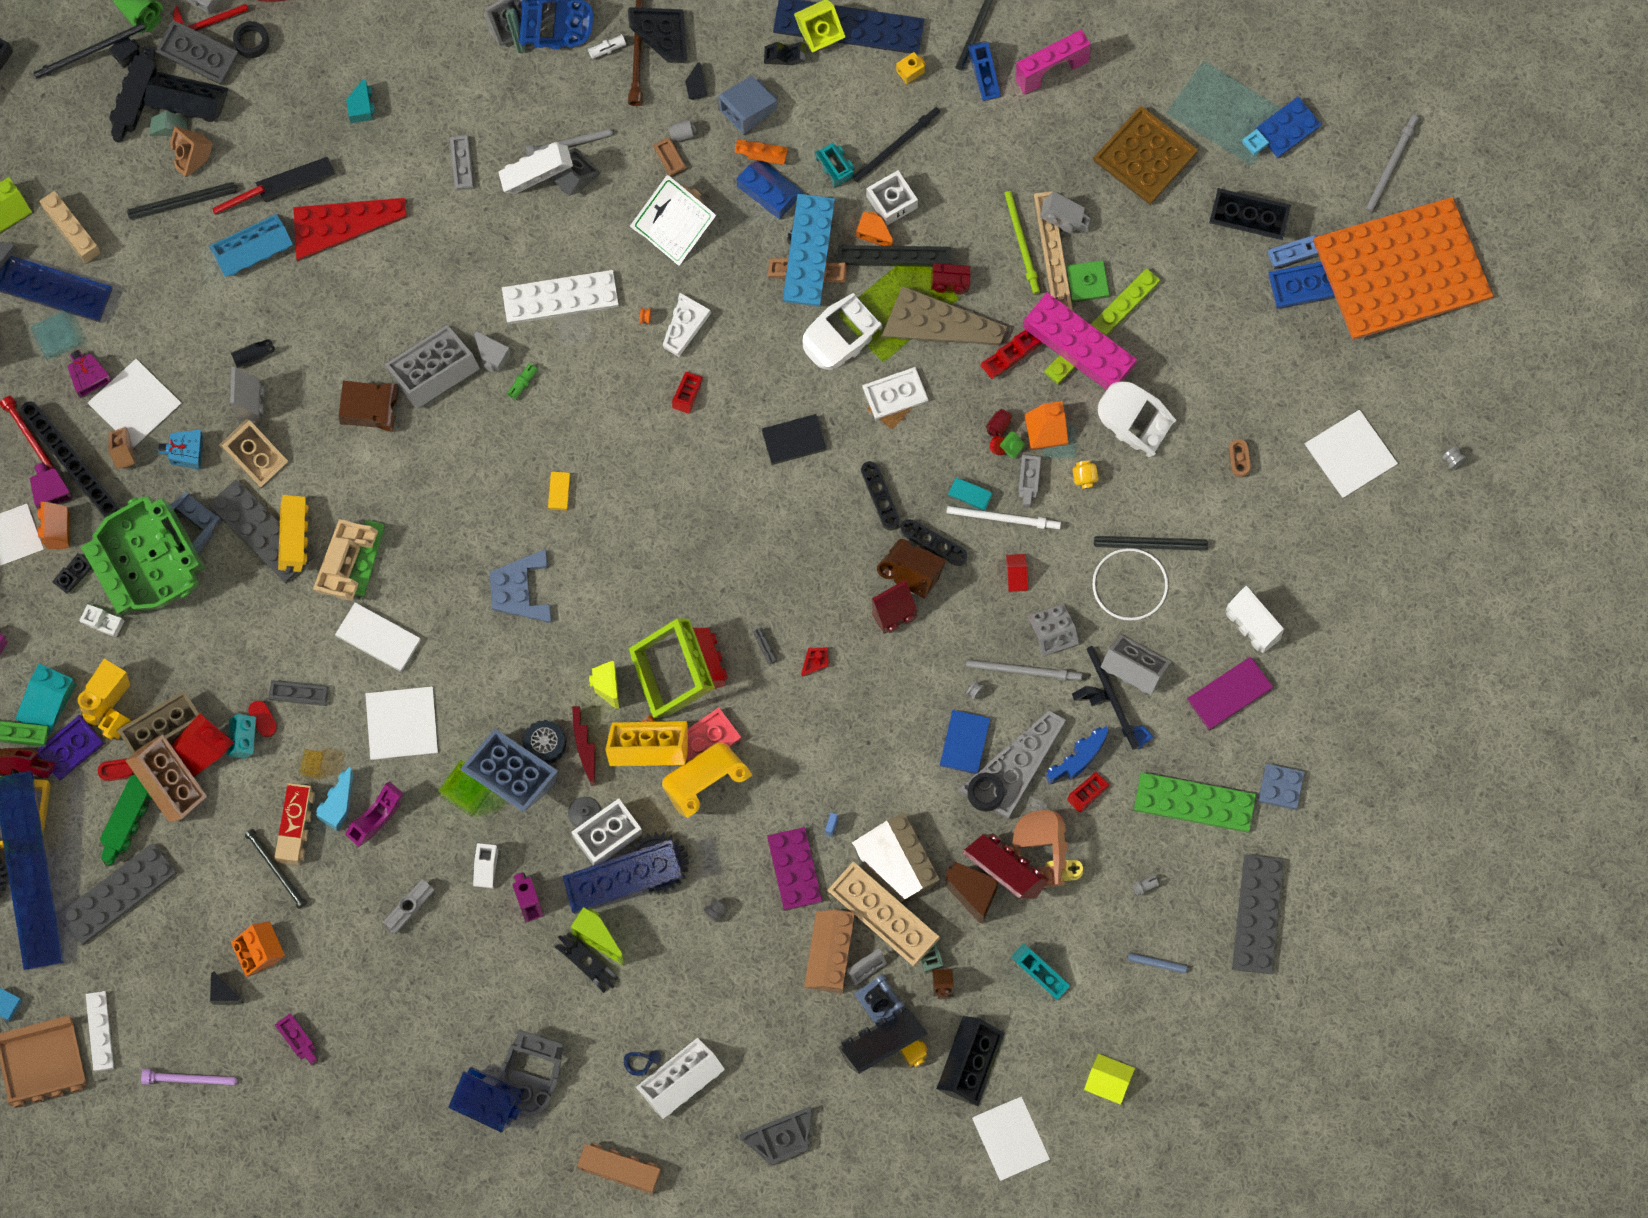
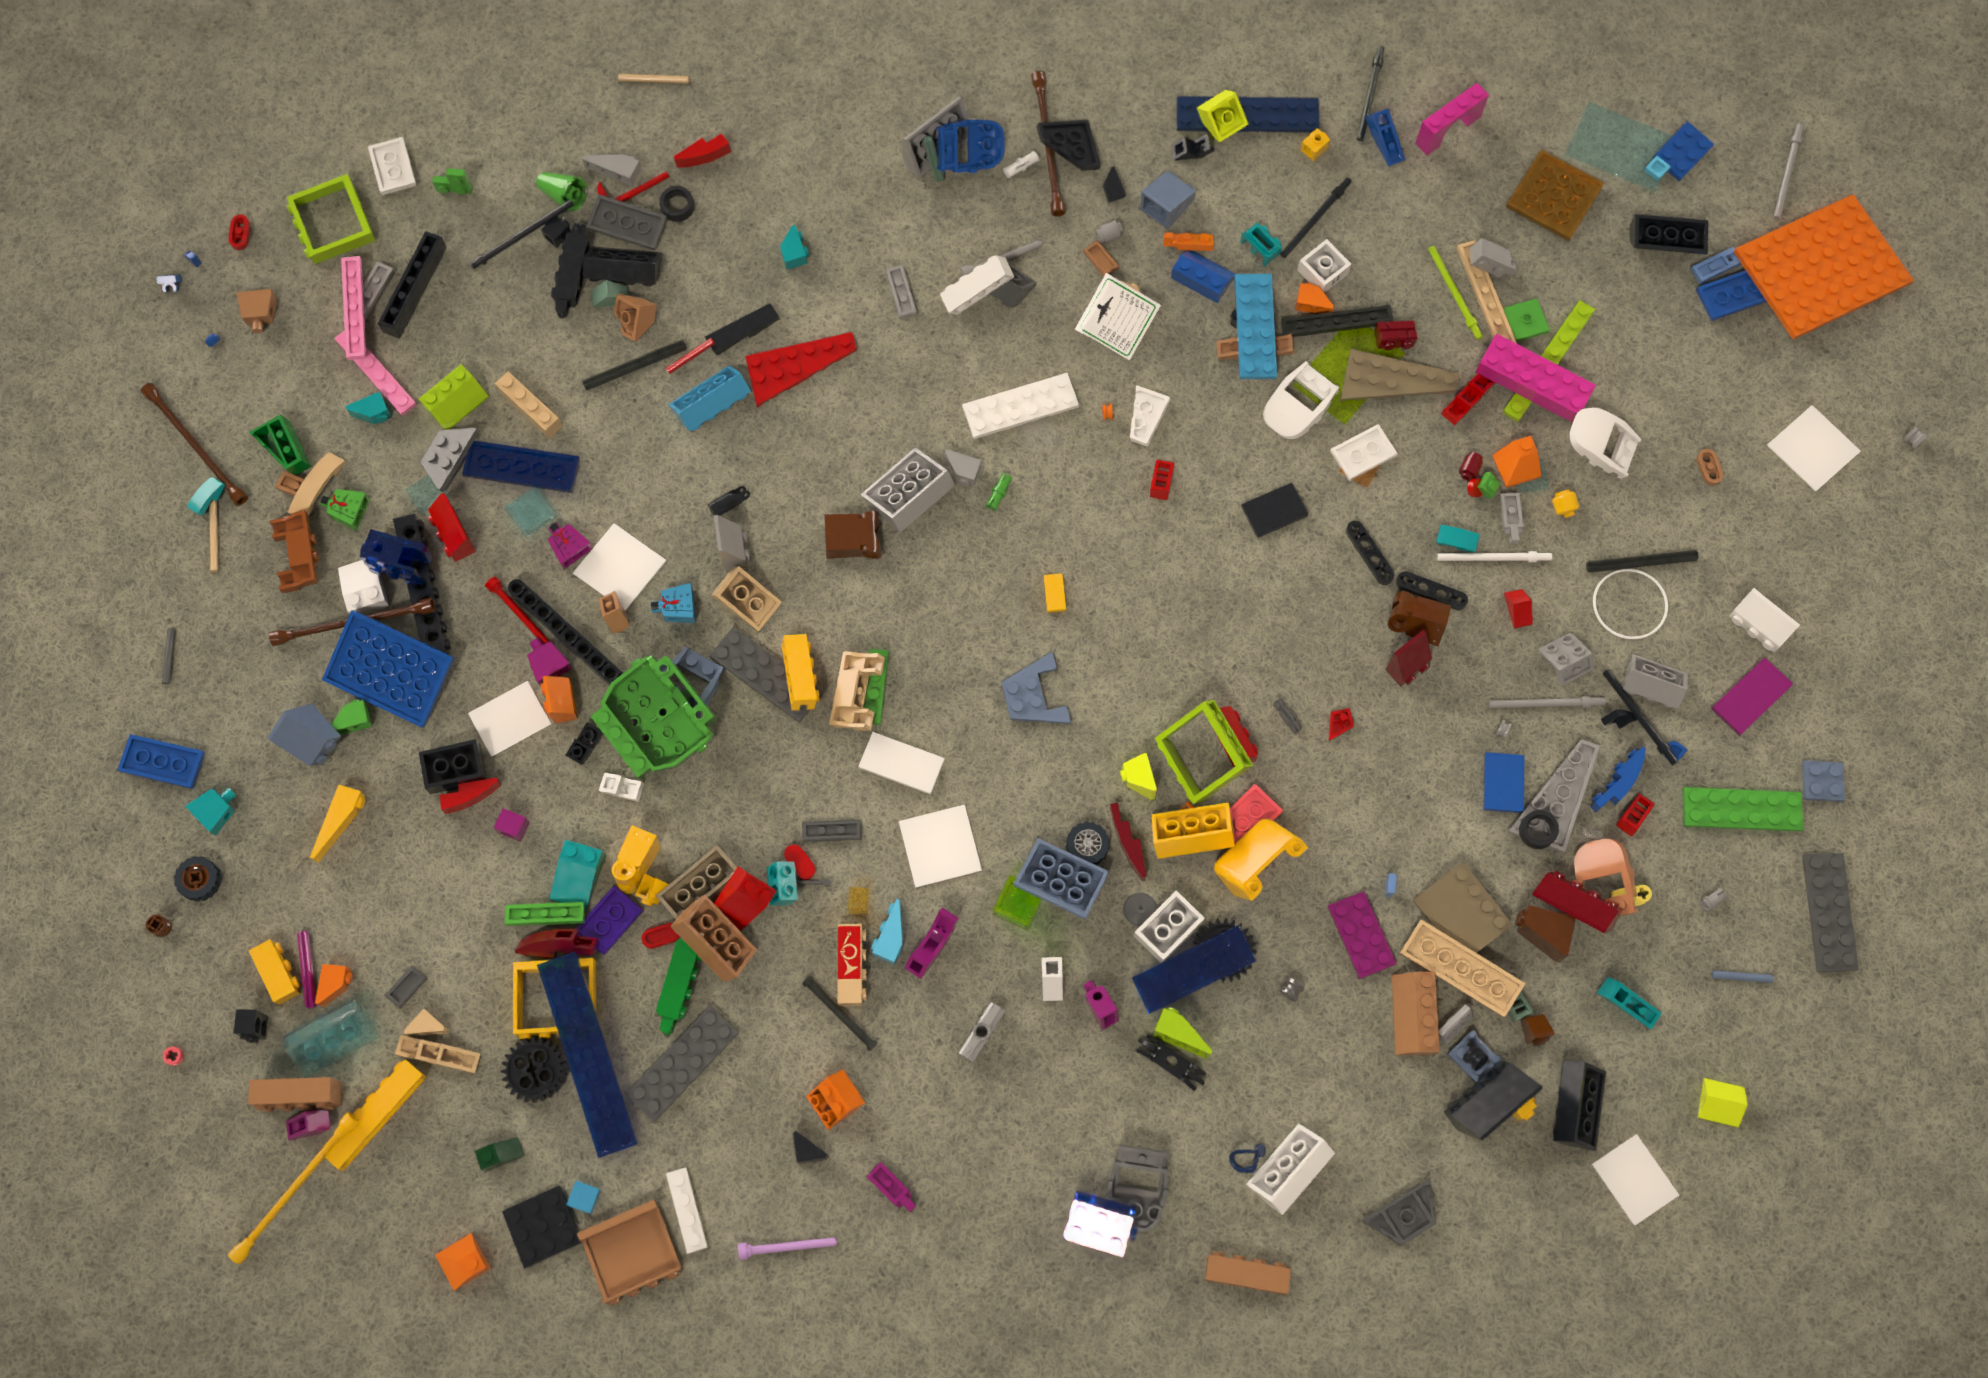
camera: 10 degrees left, 0 degrees up
(285, 742) = (826, 882): none -> dark grey hinge

